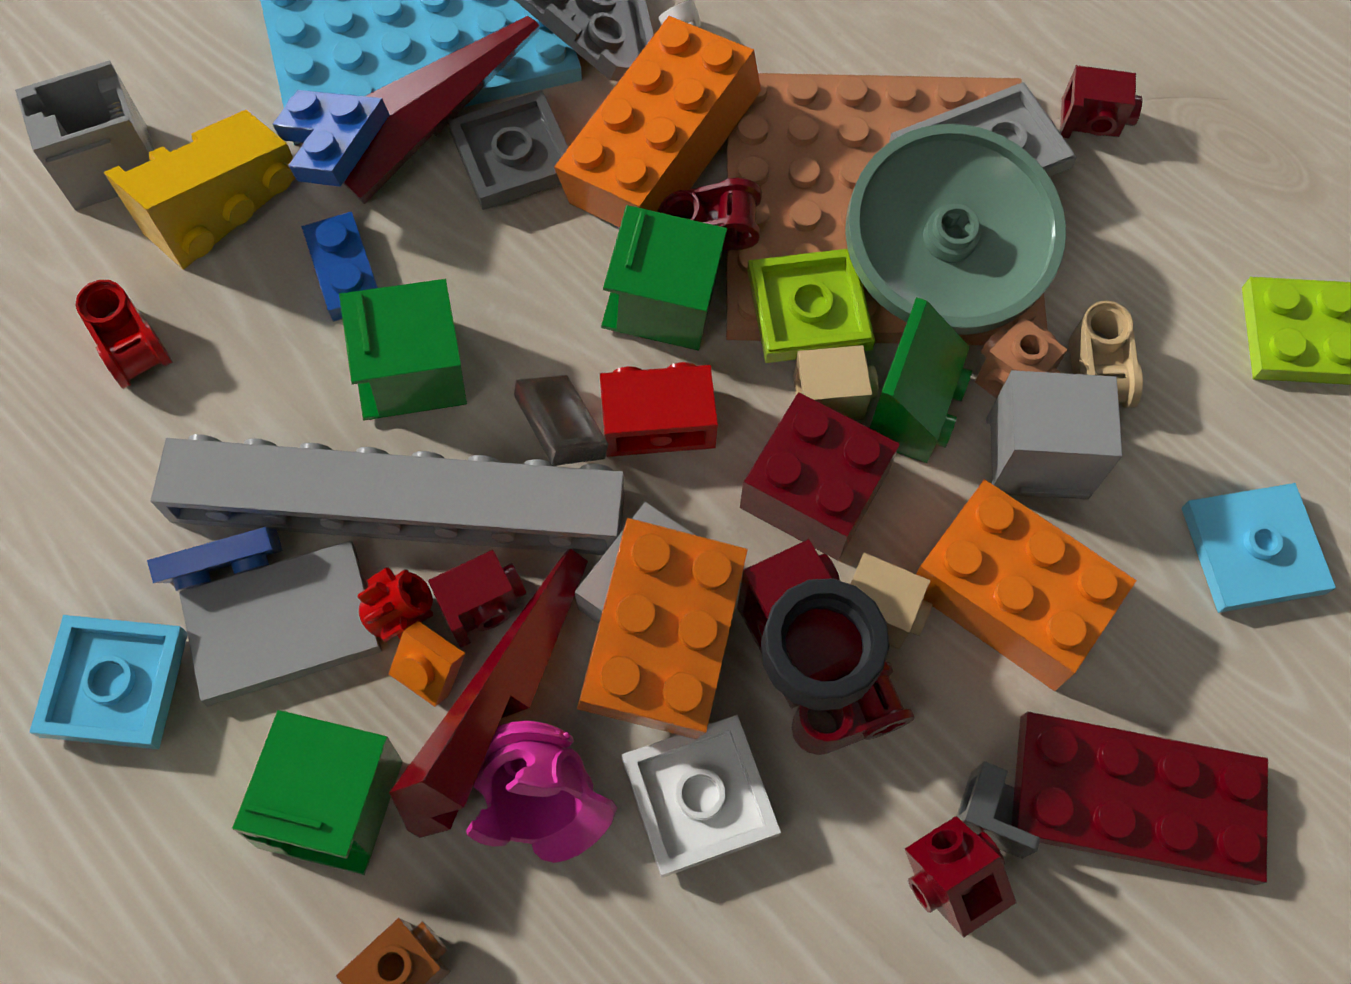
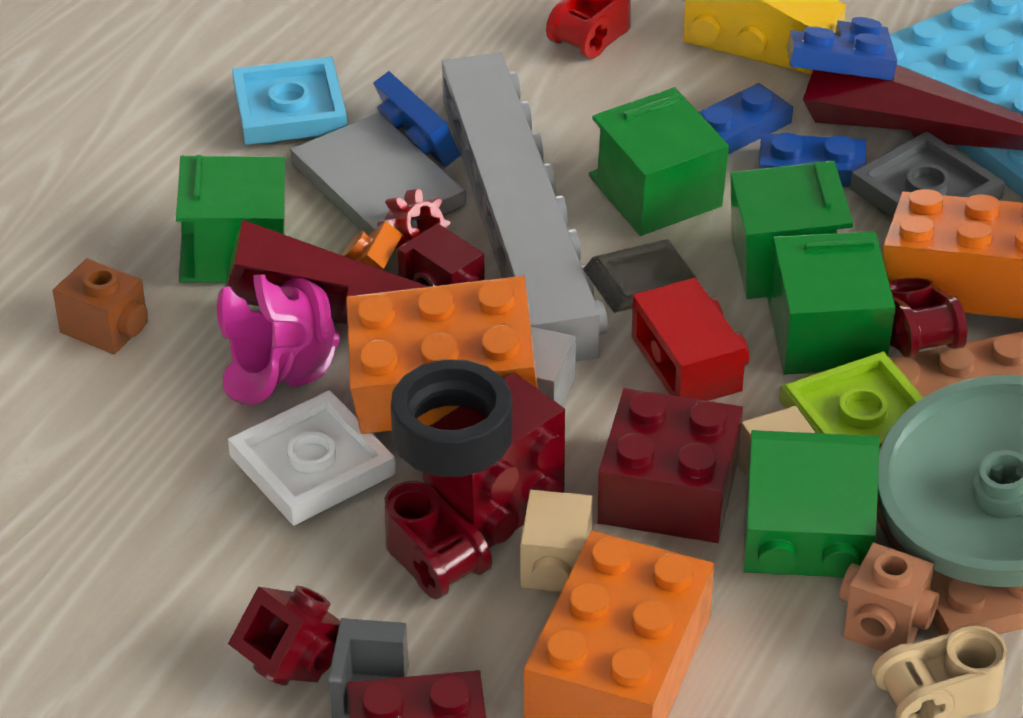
camera: 75 degrees right, 25 degrees down
(428, 225) = (794, 149): none -> blue plate
(550, 272) = (781, 203): none -> green piece
(1054, 434) = (802, 622): light grey piece -> none

